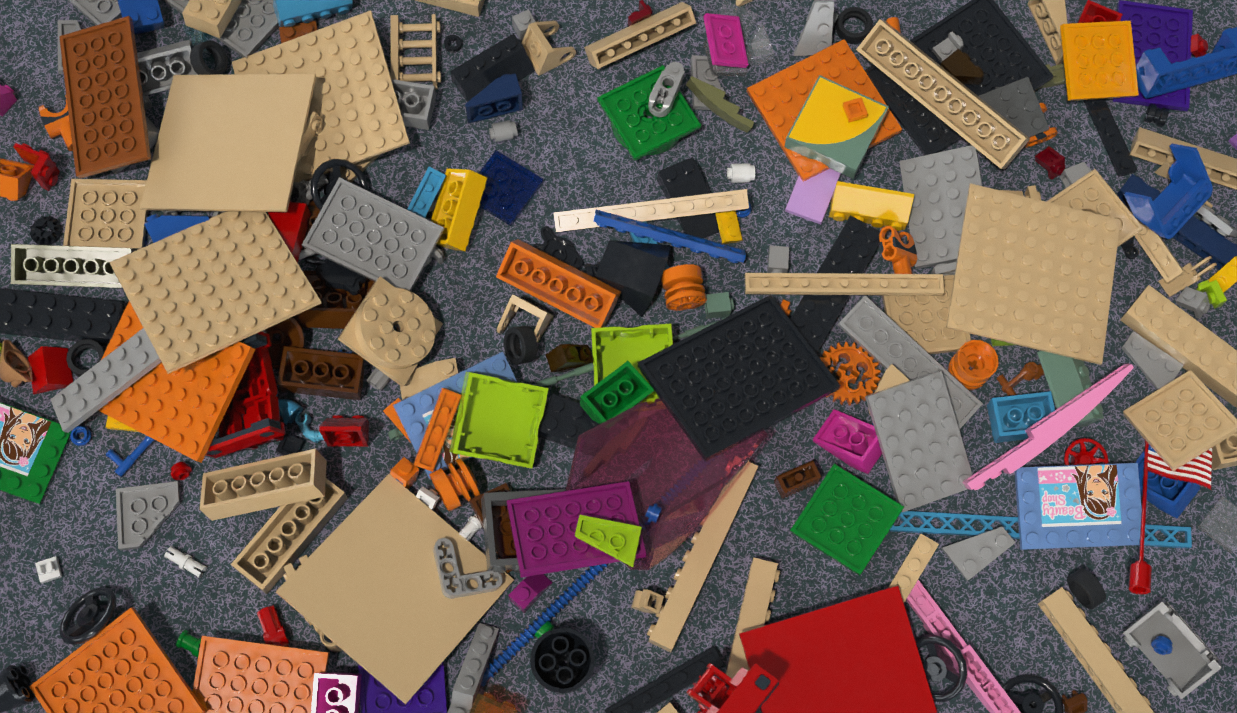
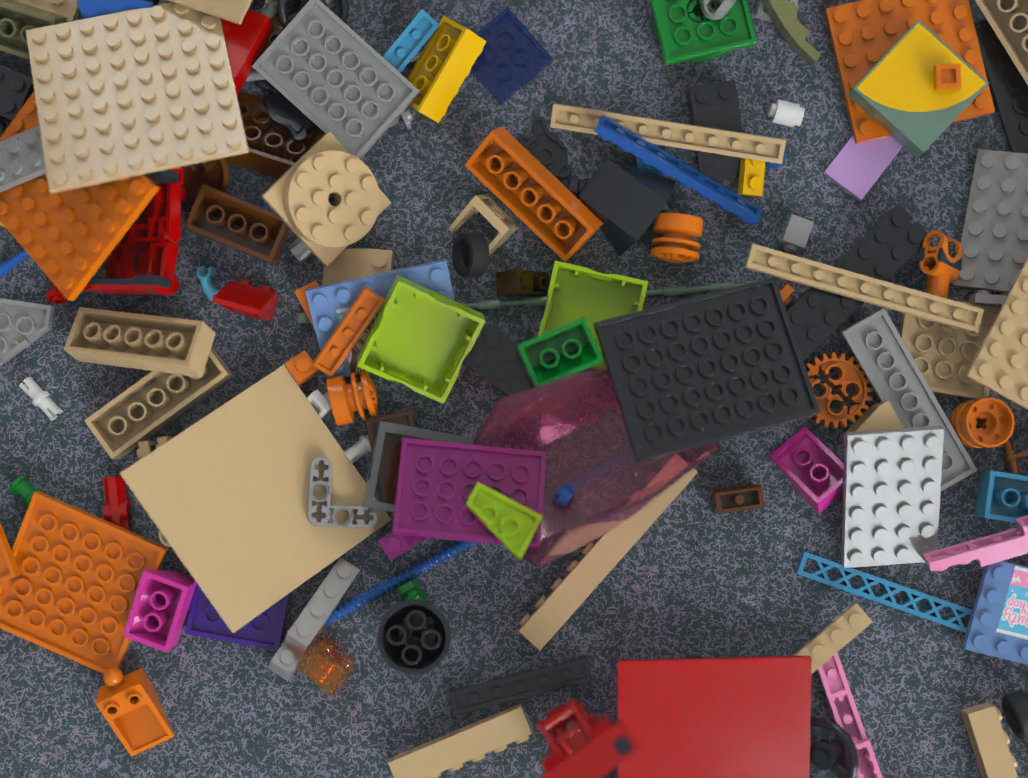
camera: 20 degrees right, 15 degrees up
(288, 410) = (190, 254): dark azure animal -> none
(289, 445) = (184, 300): black plate -> none
(643, 601) = (524, 588): tan leg -> none
(718, 305) = (711, 268): sand green brick -> none
(754, 608) = (639, 636): tan brick -> none
(847, 519) = (779, 559): green plate -> none
(871, 205) = (926, 197): yellow slope -> none
(978, 551) = (915, 636): light grey wing -> none

